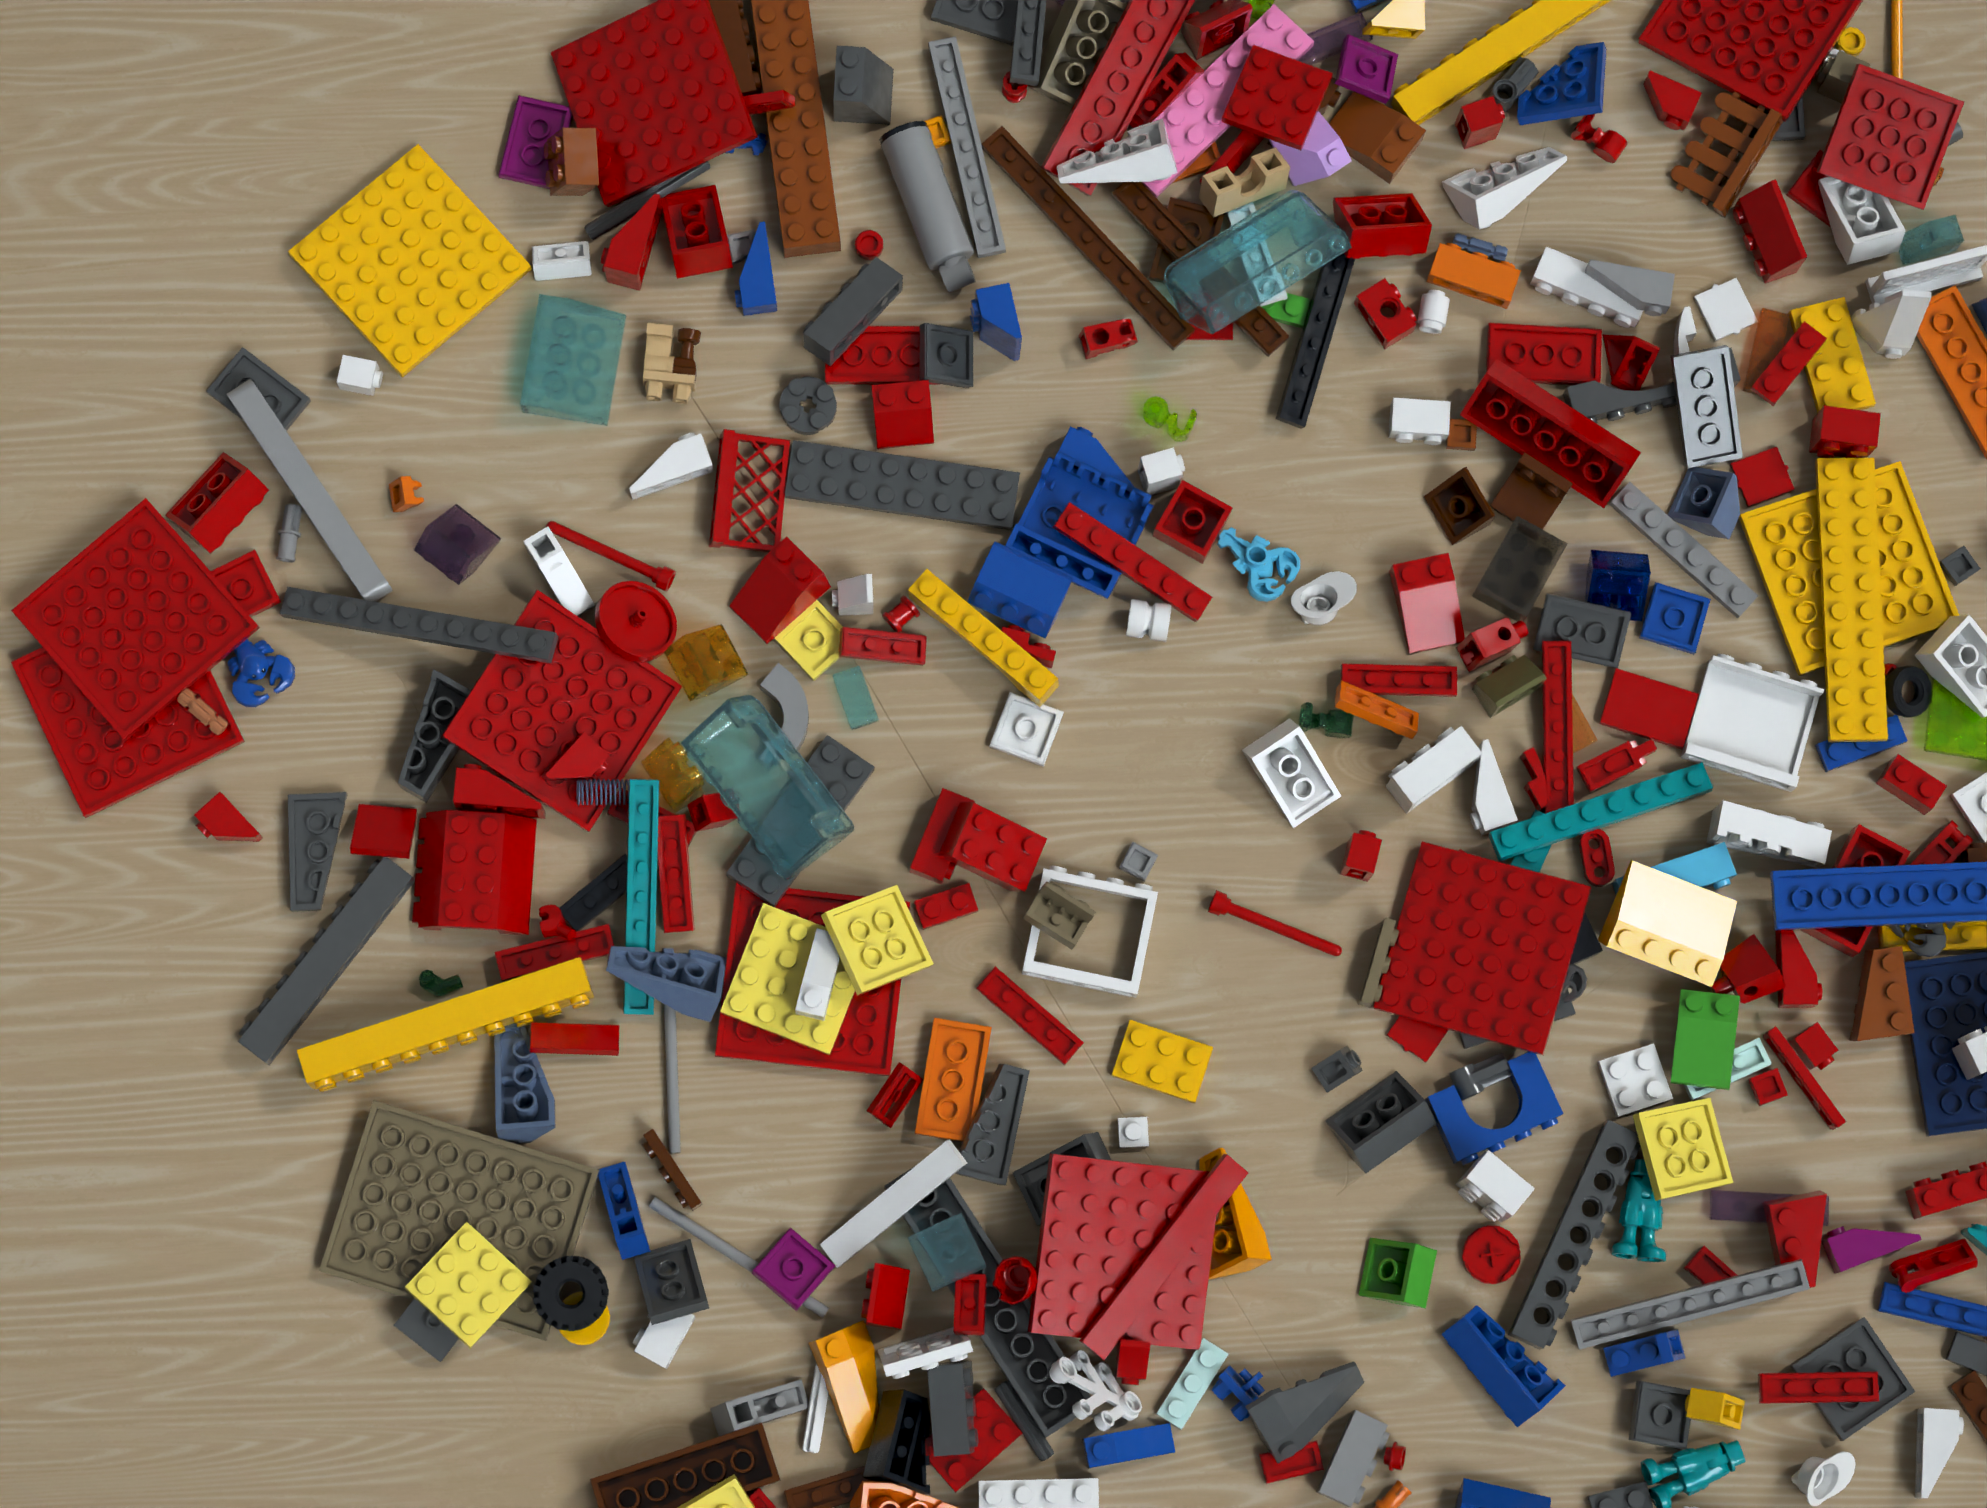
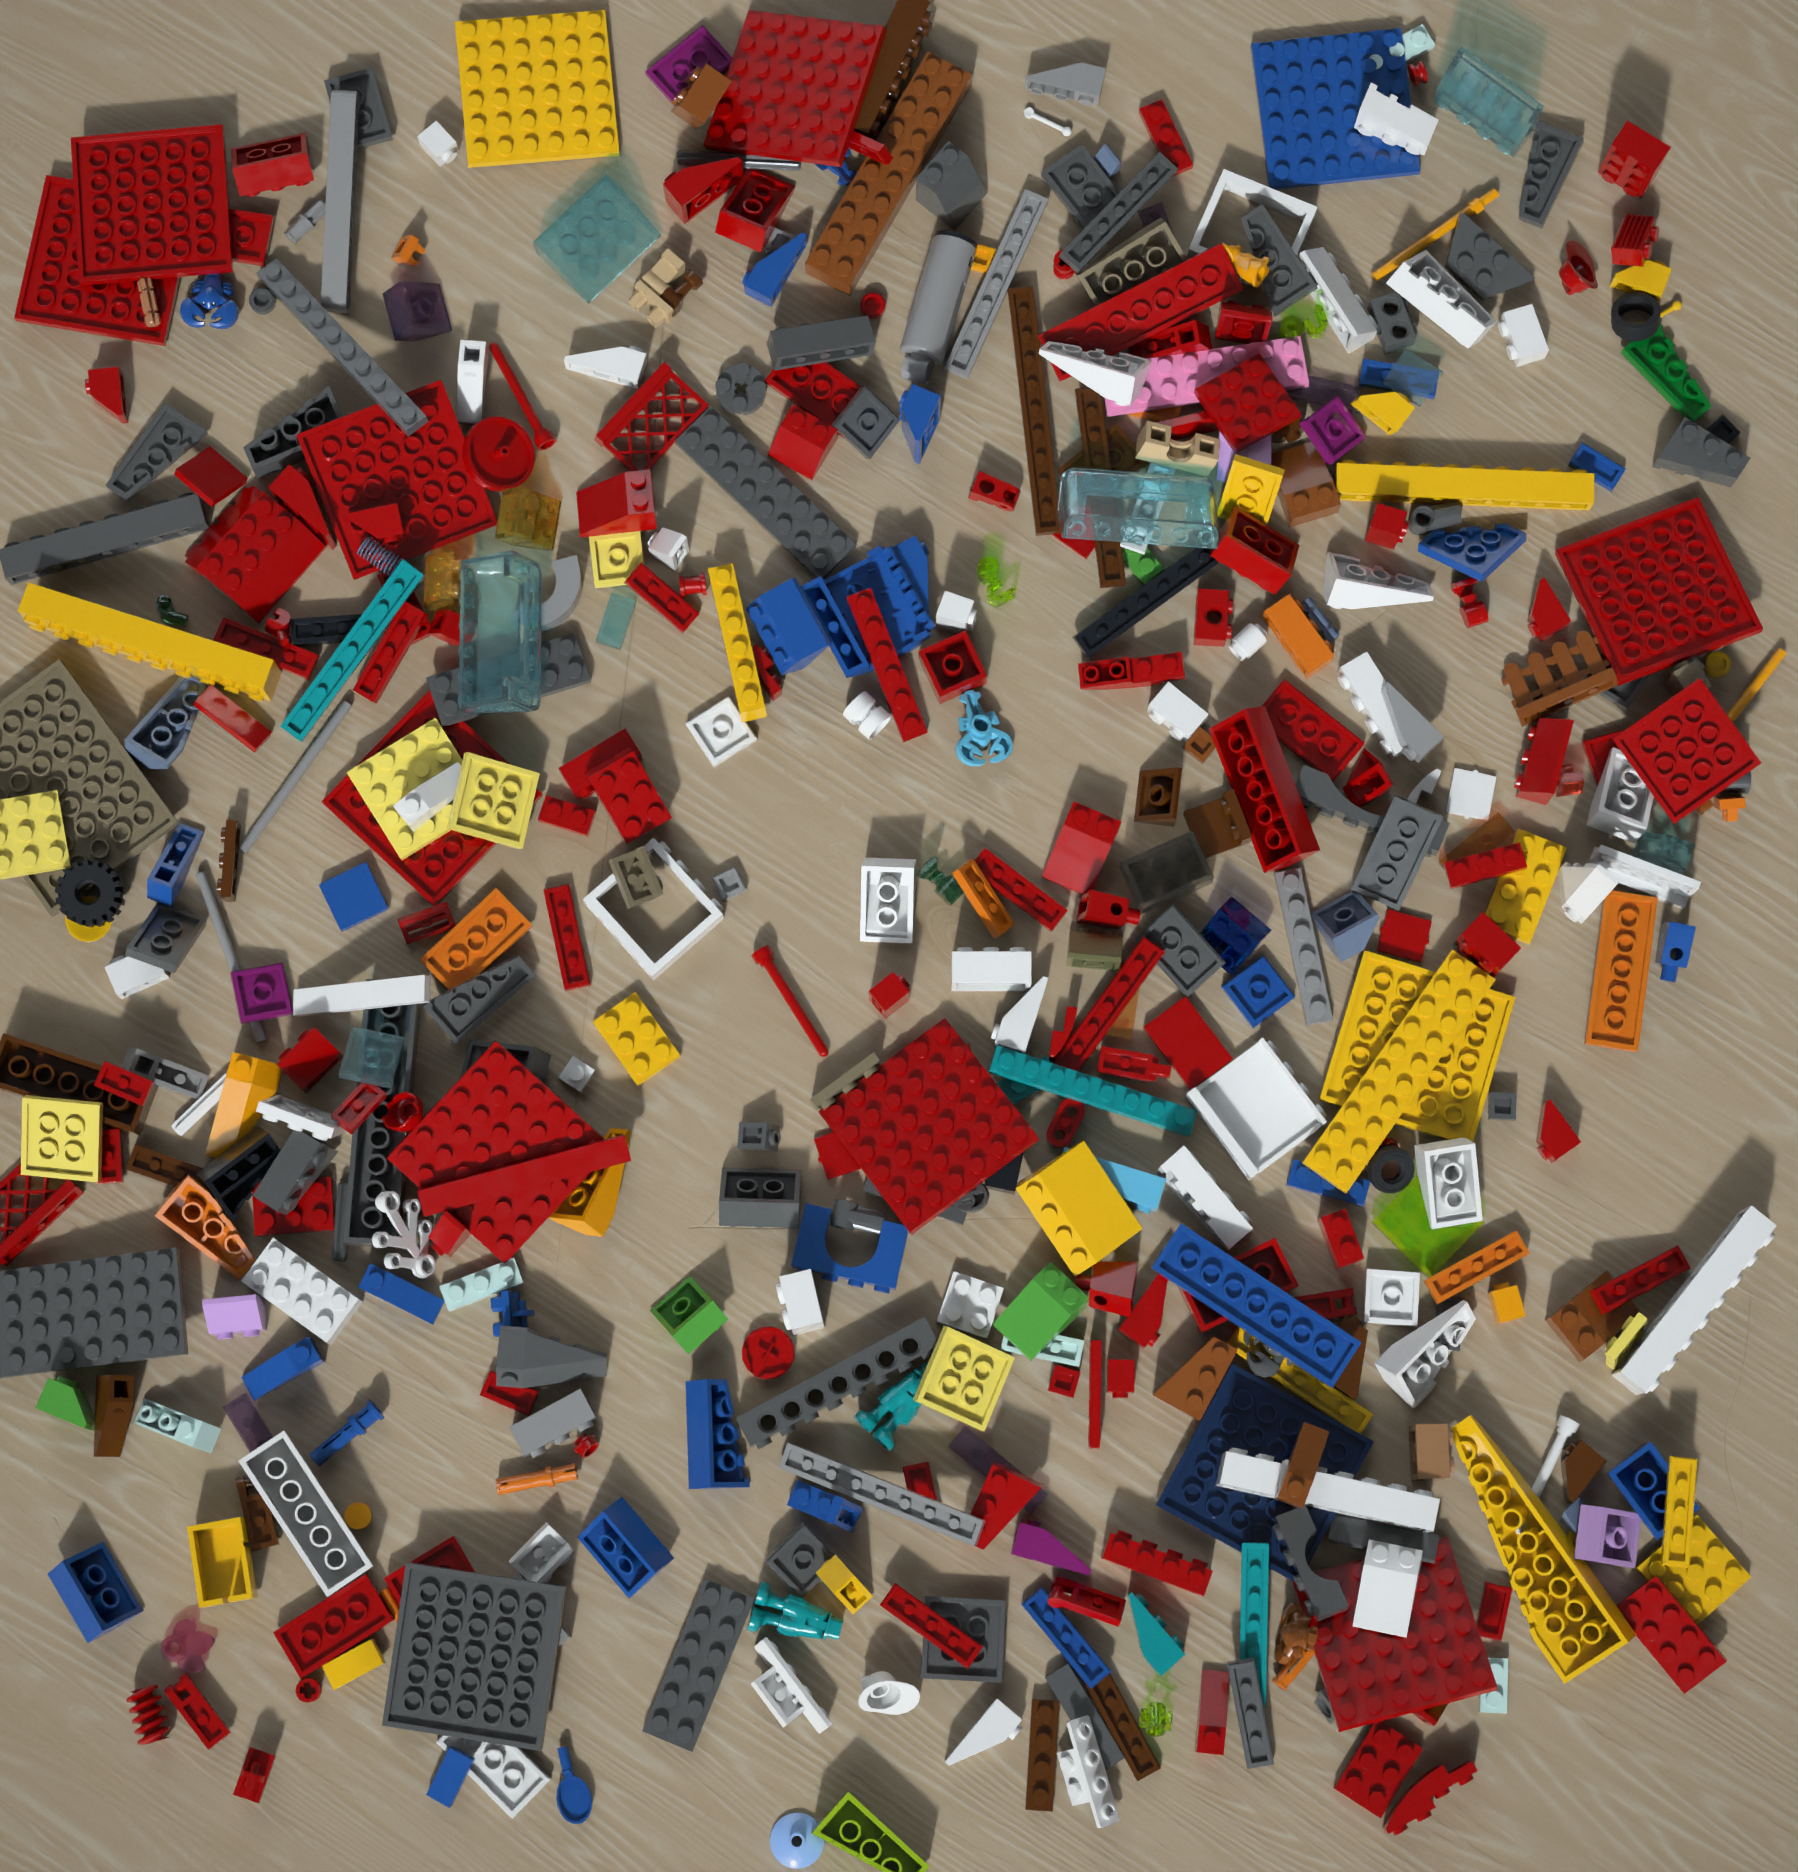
camera: 45 degrees right, 0 degrees up
(303, 636) = (262, 301): none -> dark grey tile
(561, 260) = (644, 163): white slope -> none
(680, 980) = (334, 729): sand blue wedge -> none
(740, 1442) = (124, 1083): none -> red plate
(809, 1120) = (353, 896): none -> blue tile
(1323, 597) = (1005, 789): white piece -> none
(1339, 171) = (1251, 488): none -> yellow plate
(1352, 412) = (1131, 673): none -> red slope
(1808, 234) = (1569, 782): none -> clear red tile
(1956, 159) = (1729, 806): none -> orange tile

